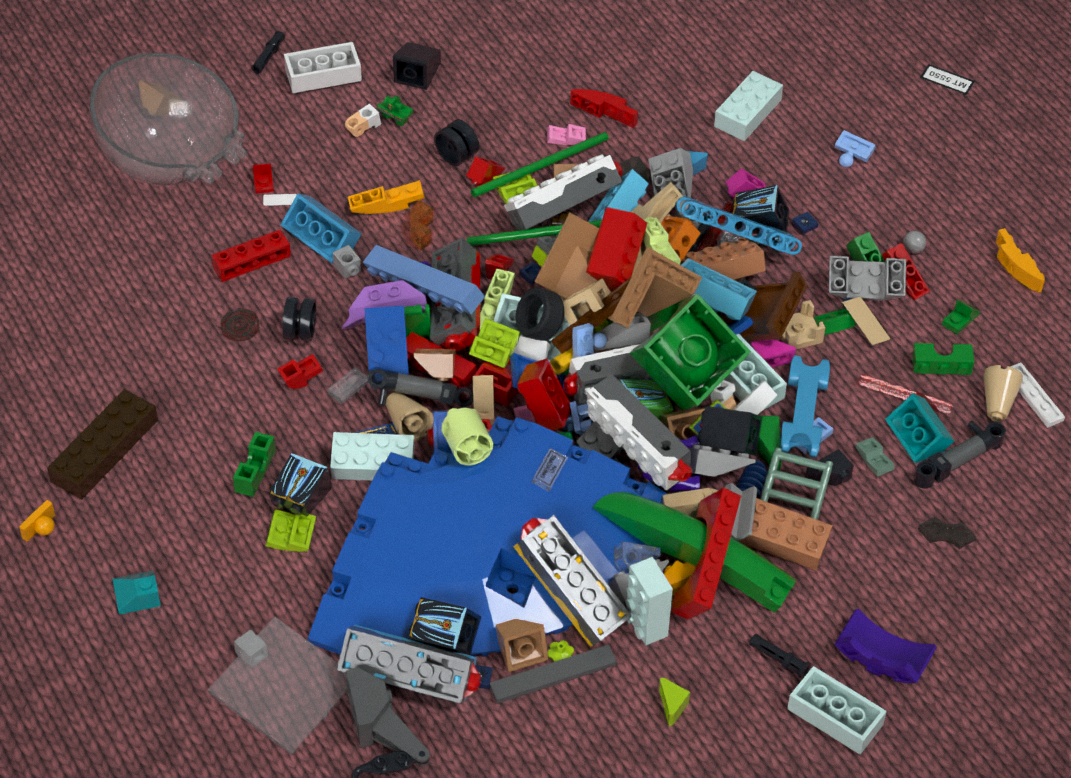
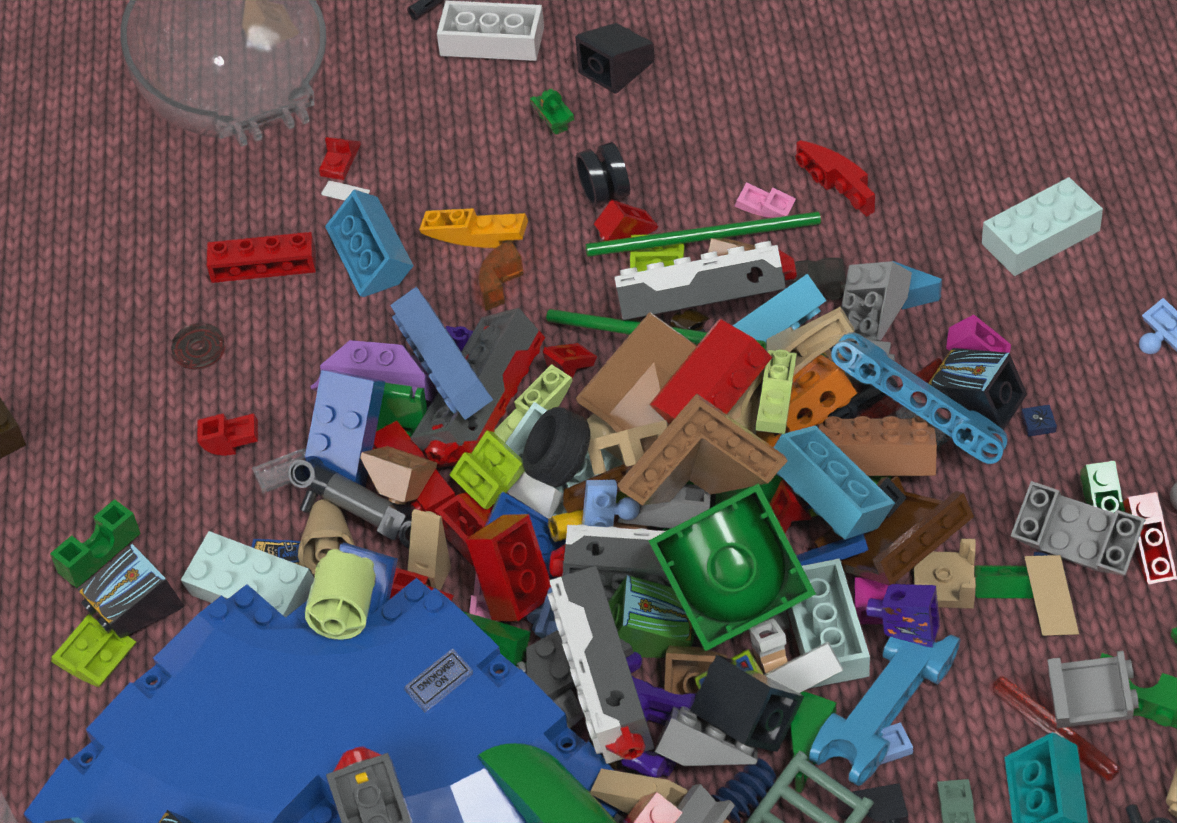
camera: 30 degrees right, 0 degrees up
(299, 318) = (263, 360): black wheel -> none
(346, 262) = (375, 299): light grey brick -> none
(363, 120) = (503, 114): leg -> none
(797, 351) = (908, 613): none -> dark purple torso
(921, 364) = (1092, 690): none -> light grey panel

